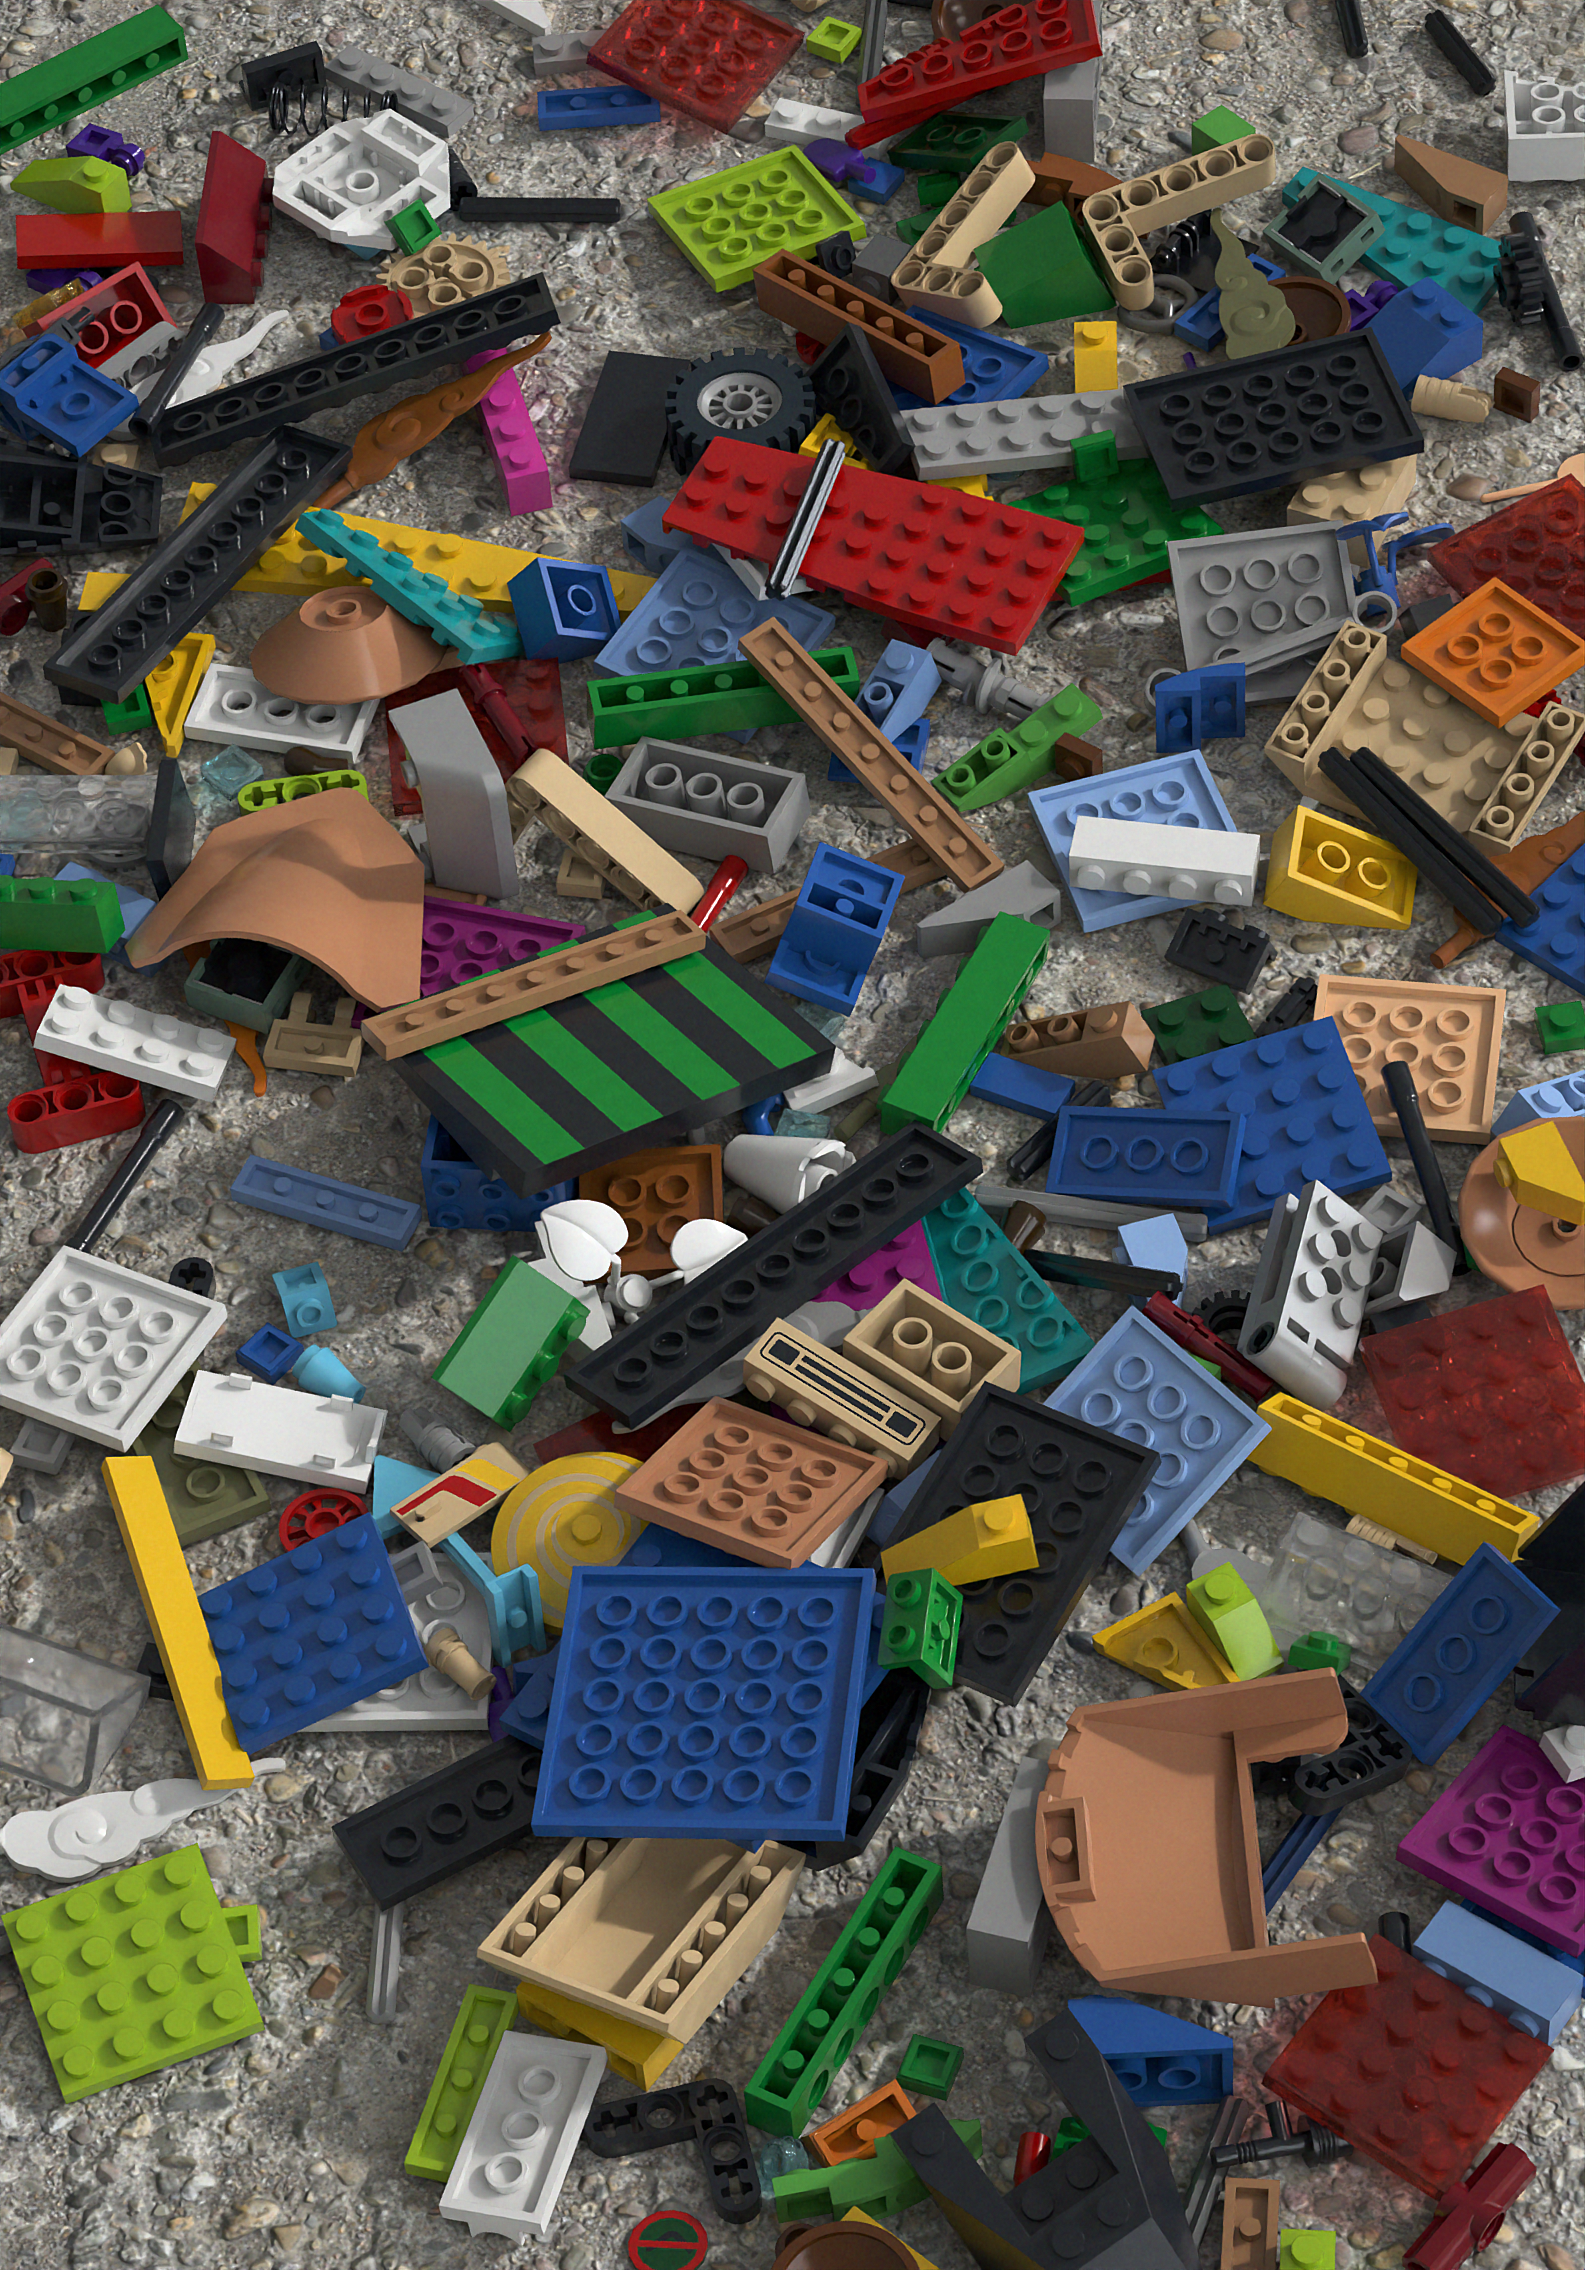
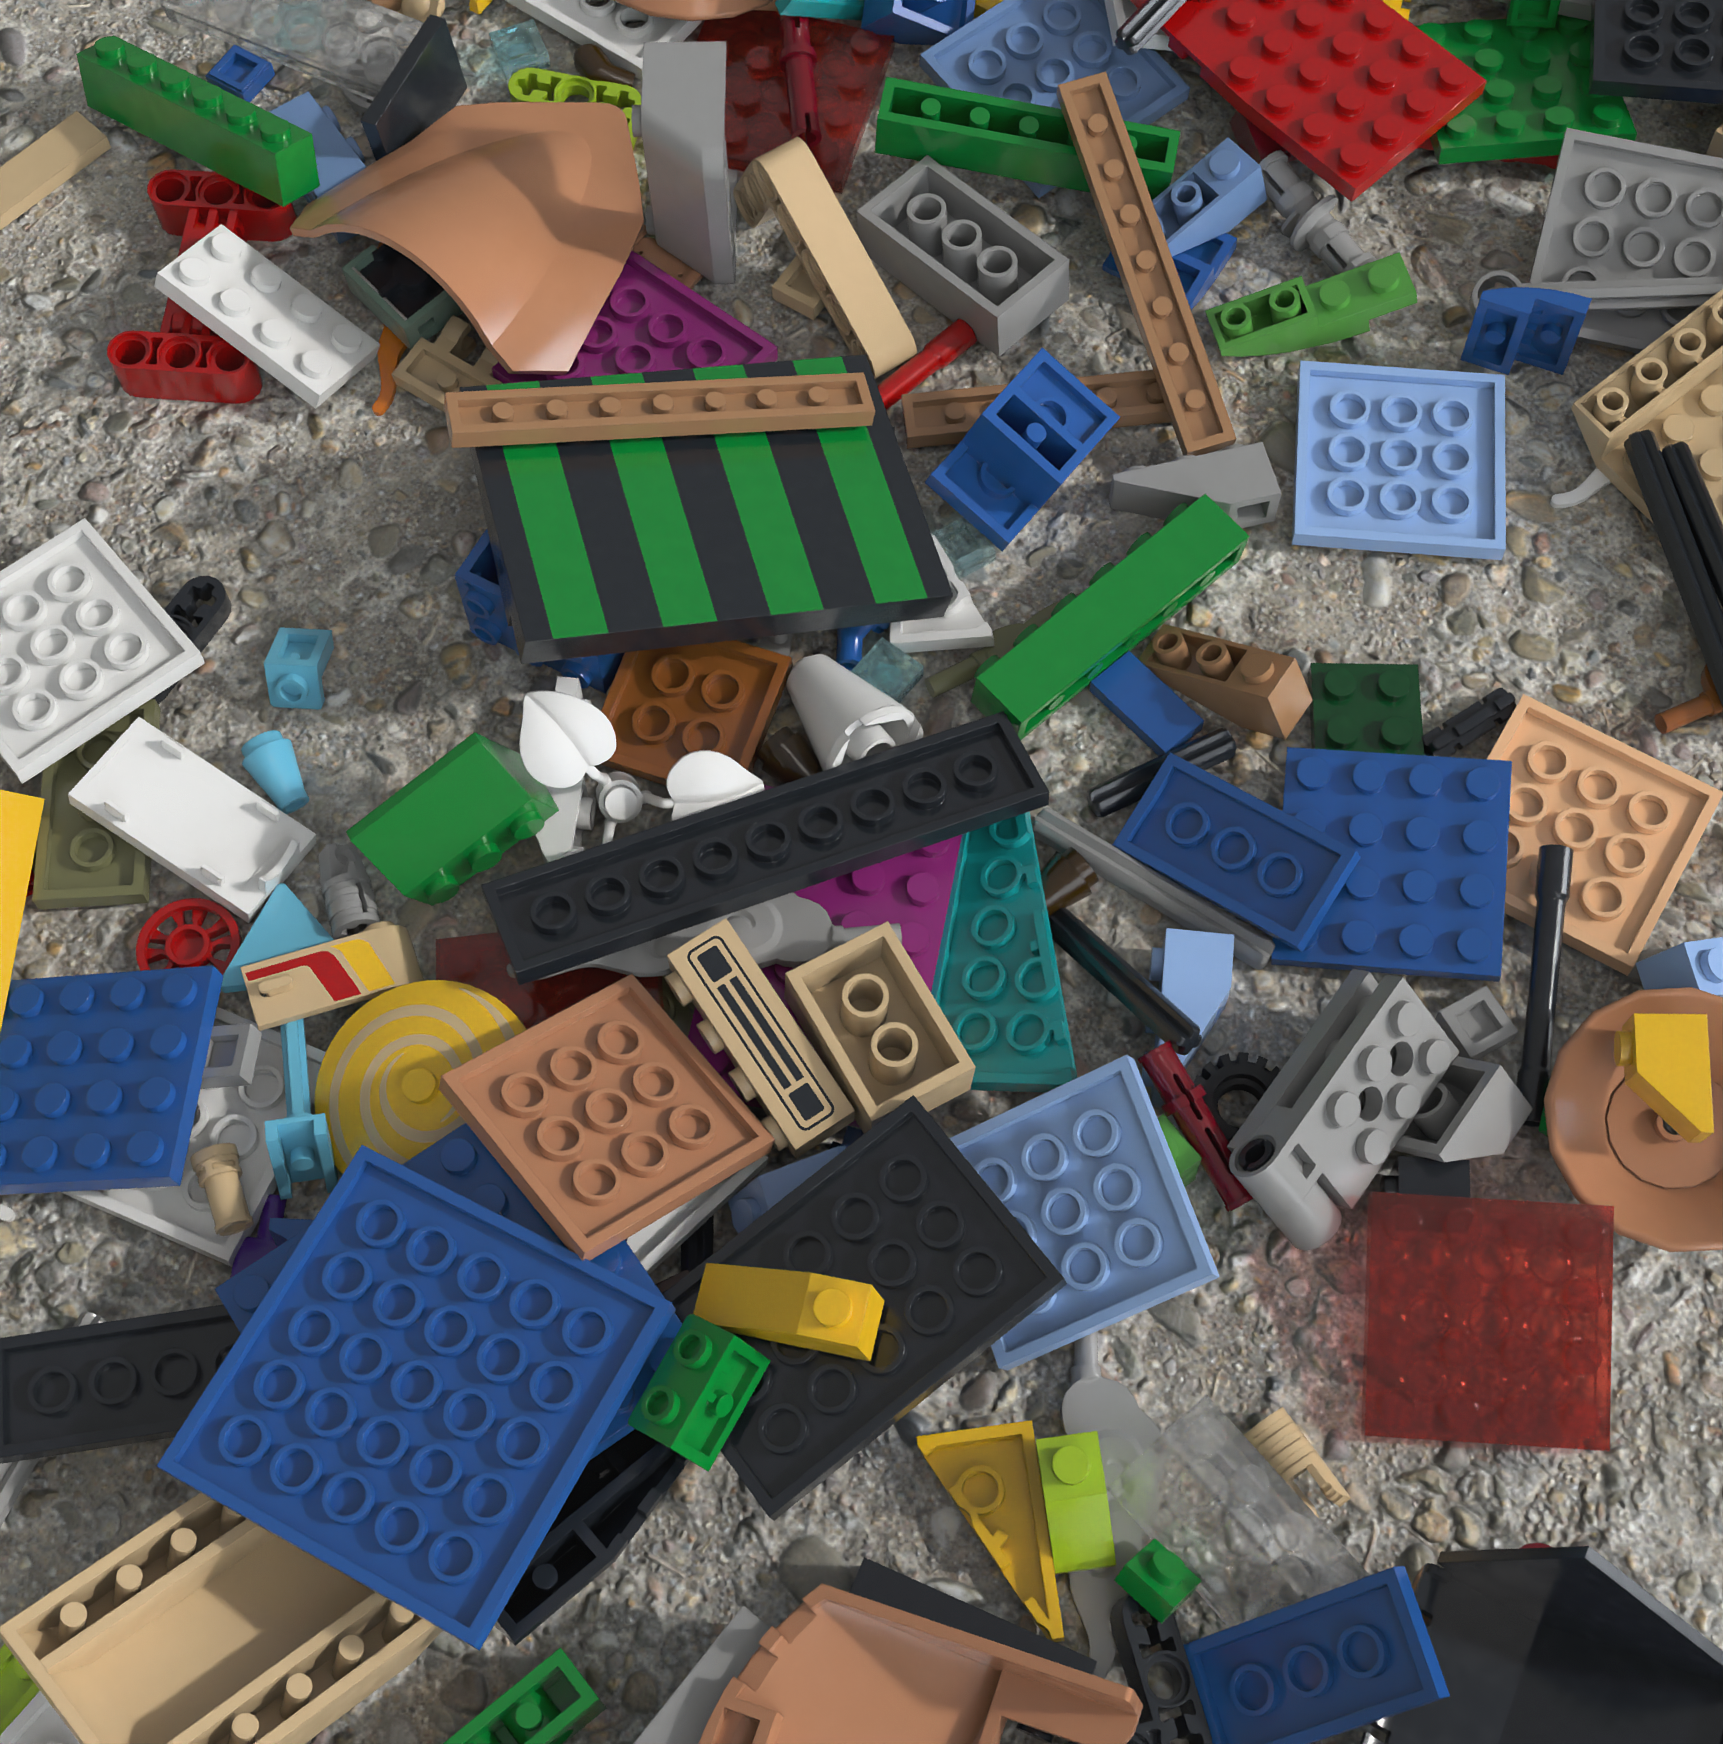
camera: 20 degrees right, 15 degrees up
(152, 1138) = (247, 423): black piece -> none
(269, 1353) = (238, 715): blue tile -> none
(326, 1203) = (374, 565): medium blue plate -> none
(602, 772) = (875, 177): green plate -> none
(1077, 758) = (1370, 340): reddish brown plate -> none
(1164, 860) = (1409, 498): white brick -> none
(1219, 950) = (1426, 623): black bracket -> none
(1338, 874) = (1594, 580): yellow slope -> none
(1386, 1484) = (1336, 1397): yellow brick -> none

